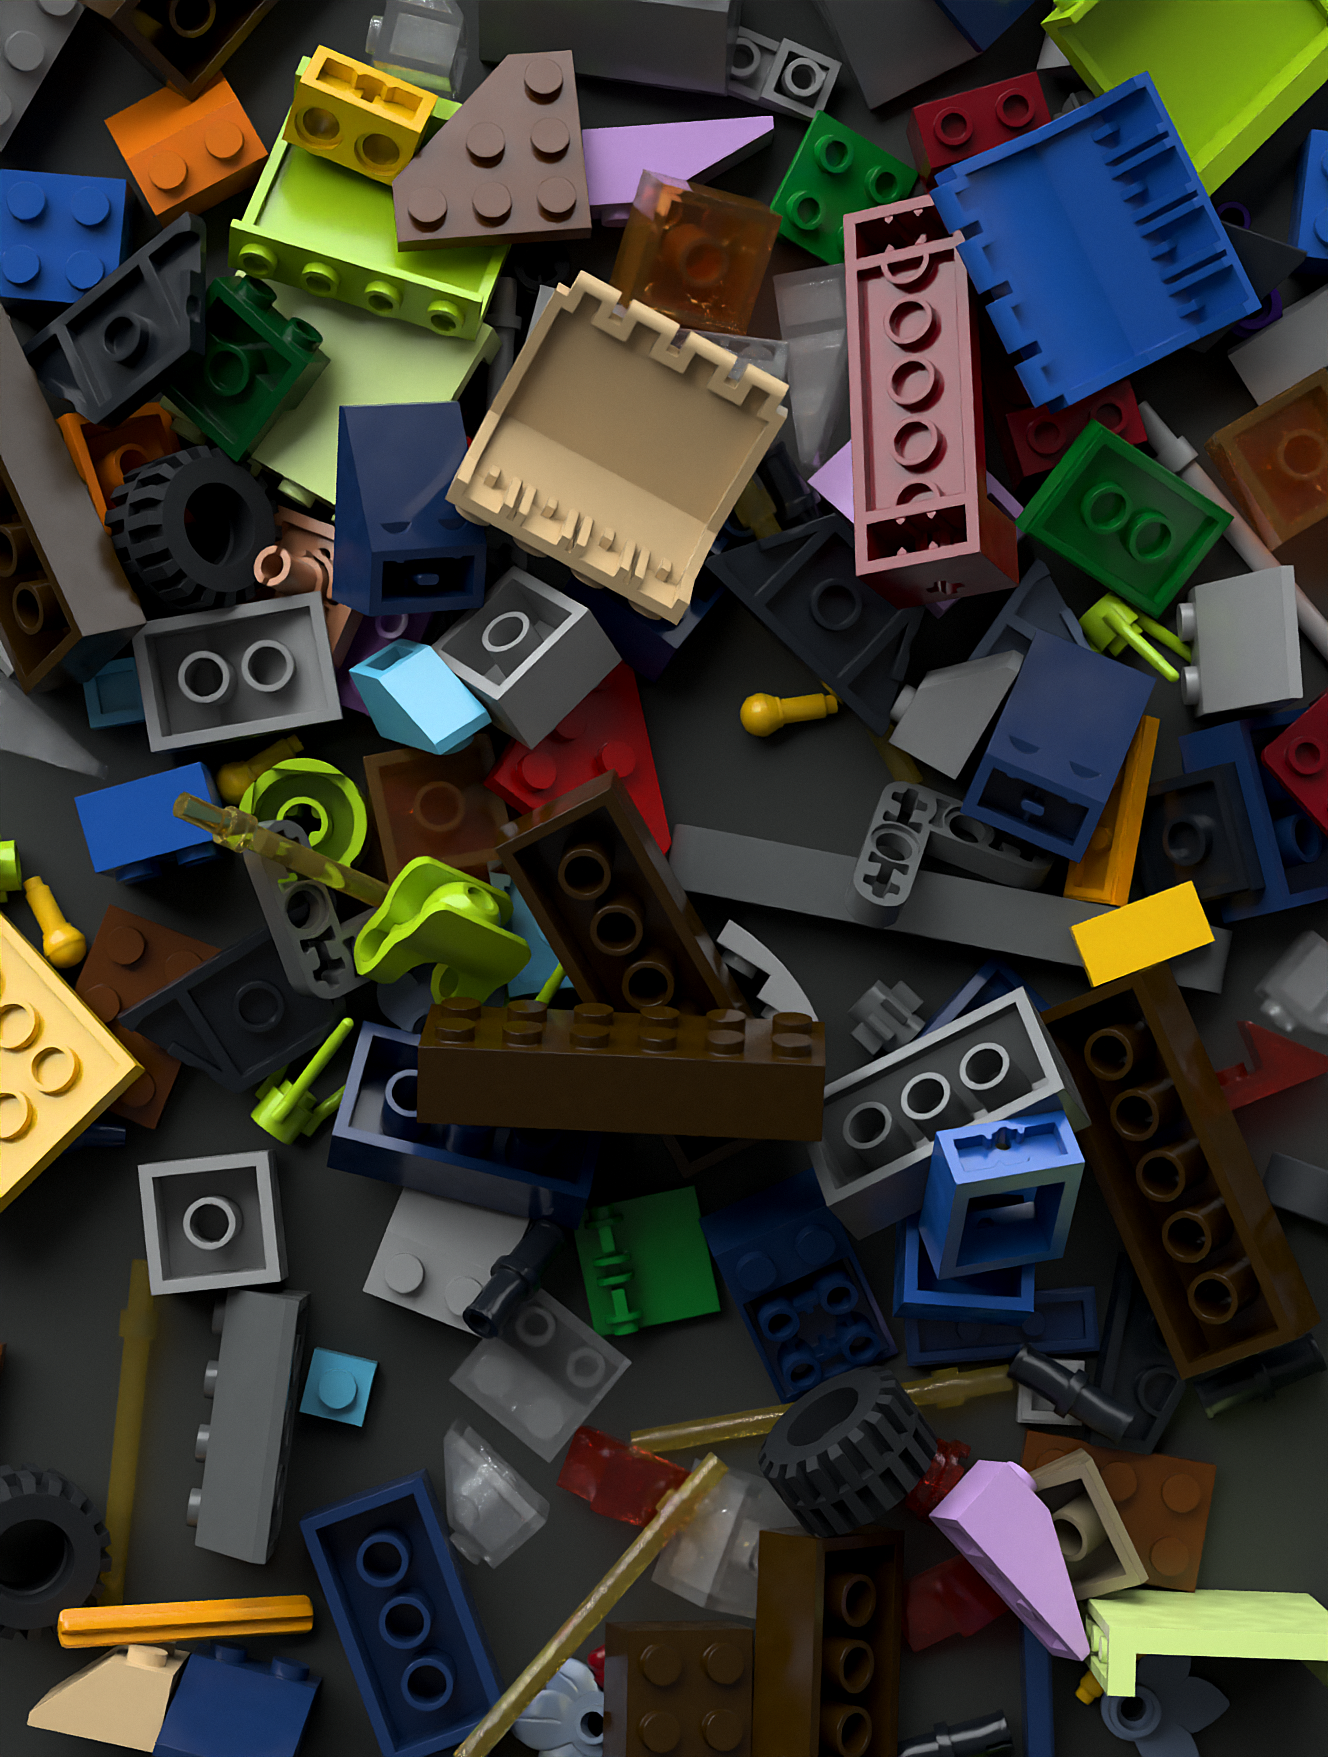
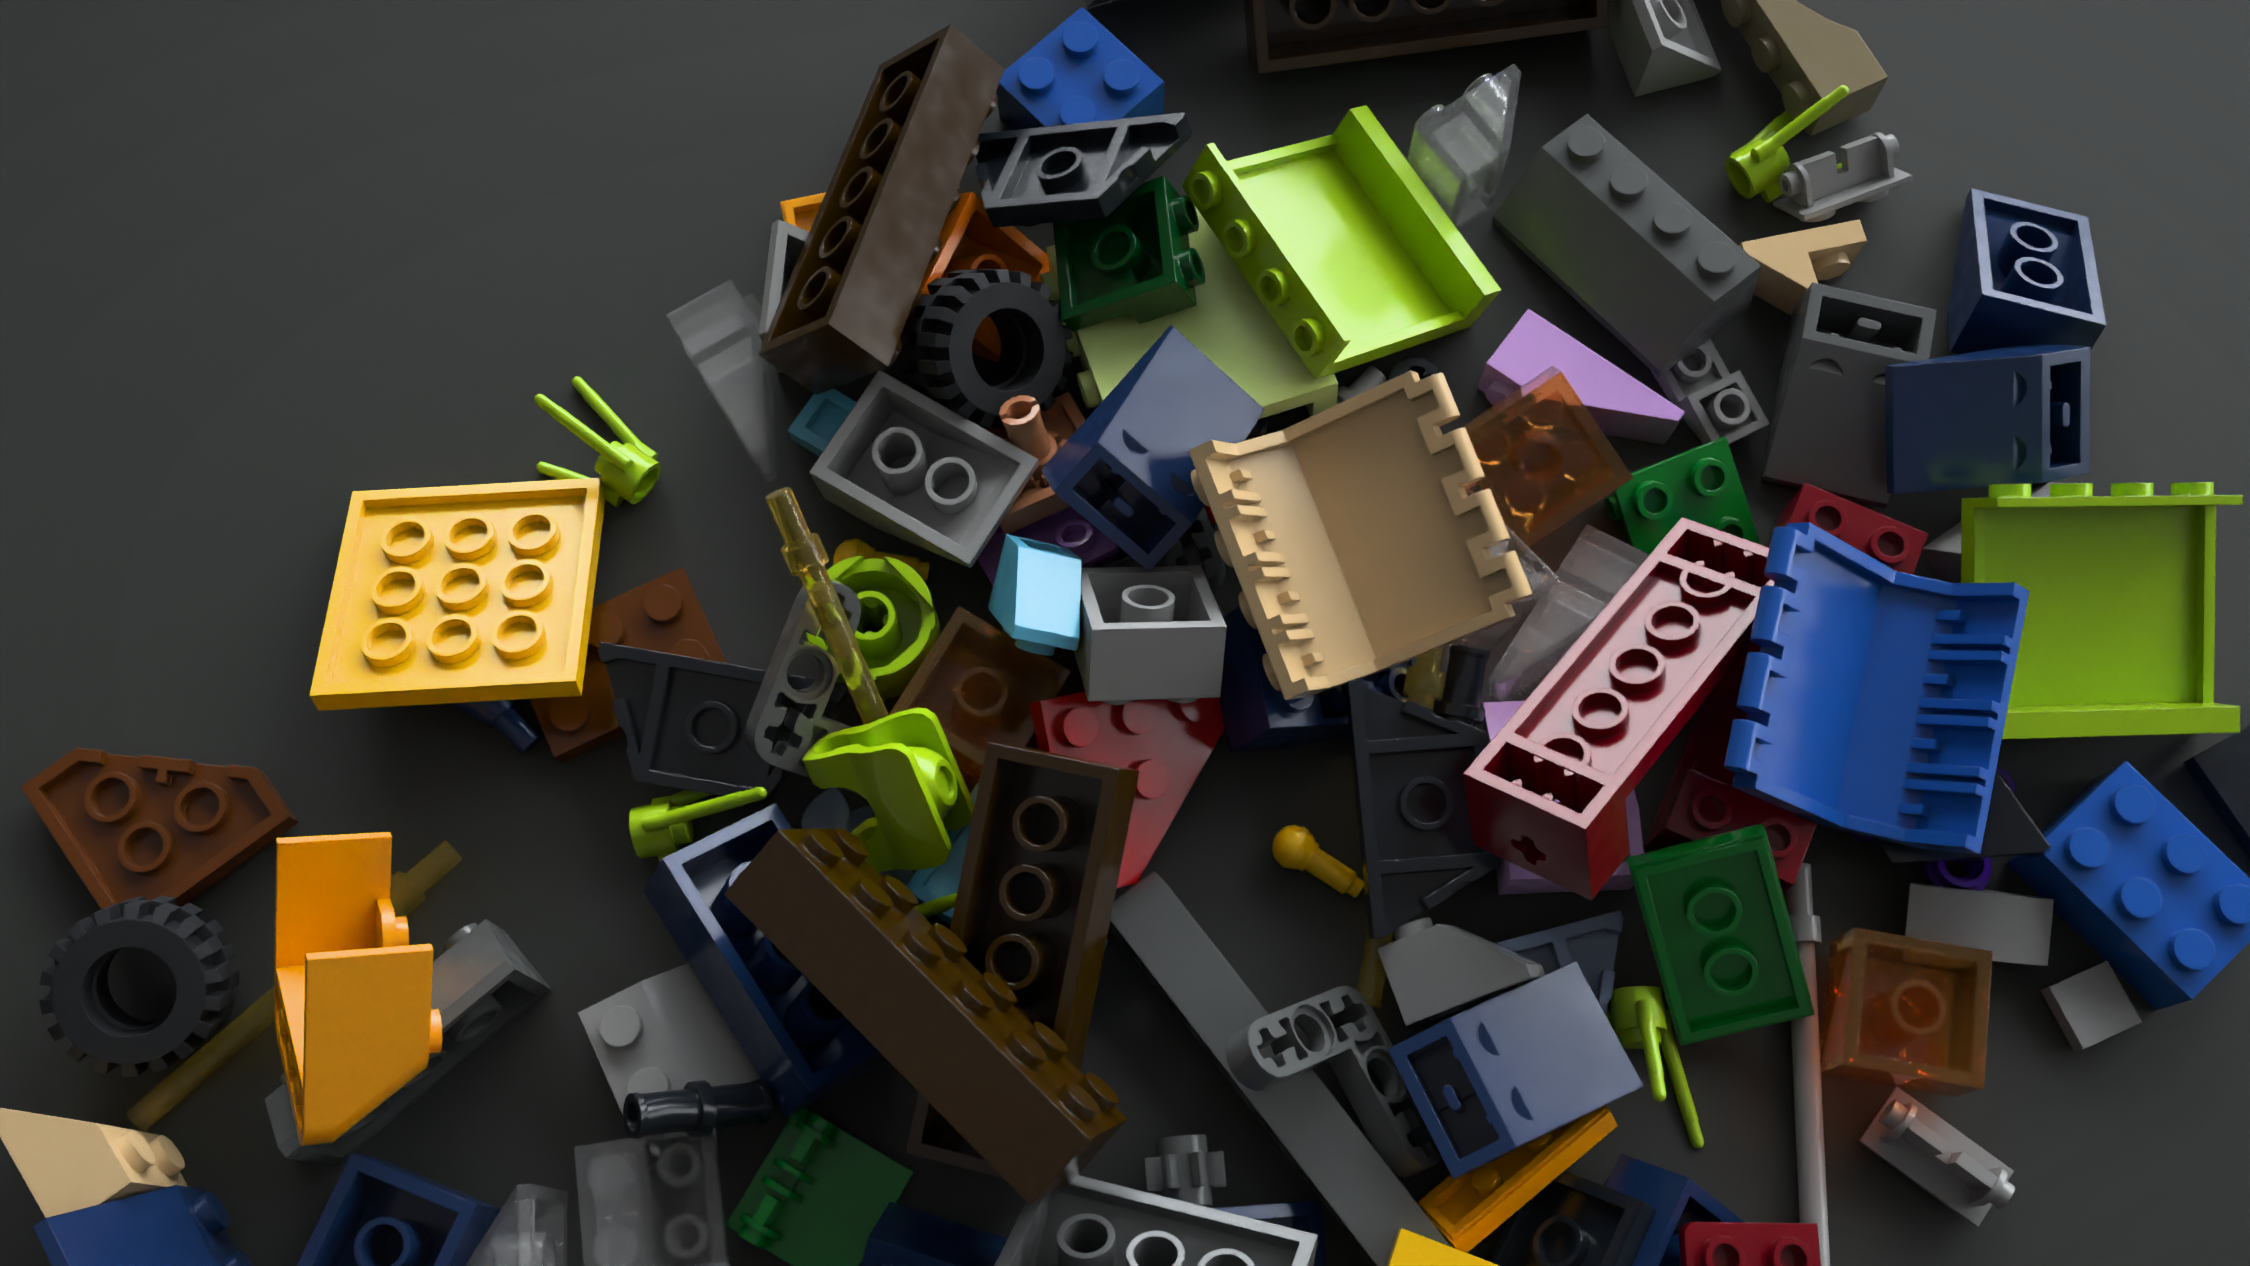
camera: 45 degrees right, 15 degrees down
(62, 944) = (623, 566): yellow piece -> none
(134, 826) = (738, 527): blue brick -> none
(184, 1621) = (198, 1154): light orange axle -> none
(187, 150) = (1231, 105): orange slope -> none
(209, 1448) = (346, 983): none -> light orange windscreen
(213, 1222) = (524, 861): light grey brick -> none
(339, 1386) = (498, 1081): medium azure plate -> none
(358, 116) = (1365, 155): yellow brick -> none
(501, 164) = (1444, 279): plate -> none
(747, 956) = (1119, 1025): light grey slope -> none
(1241, 645) = (1742, 1119): light grey slope -> none

